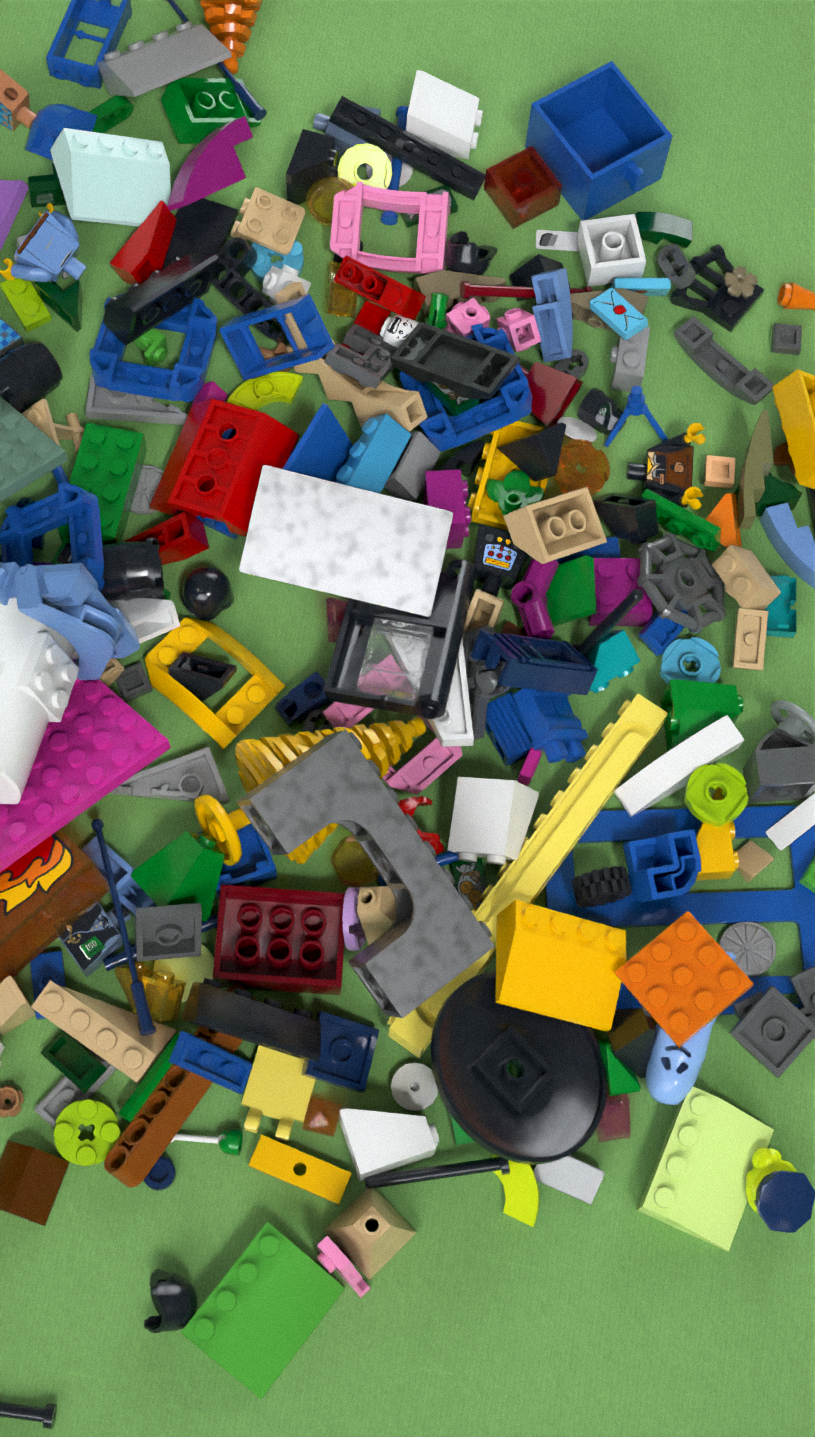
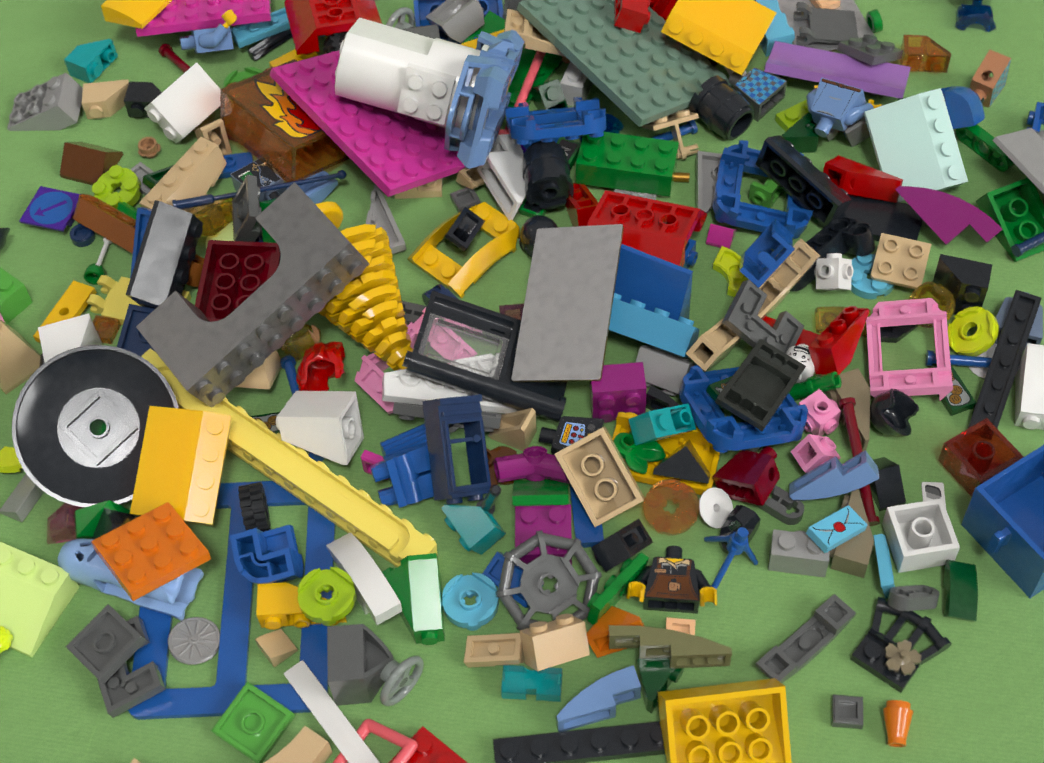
camera: 100 degrees right, 15 degrees down
(117, 1220) = (51, 209): none -> piece
(500, 461) = (662, 424): none -> teal slope

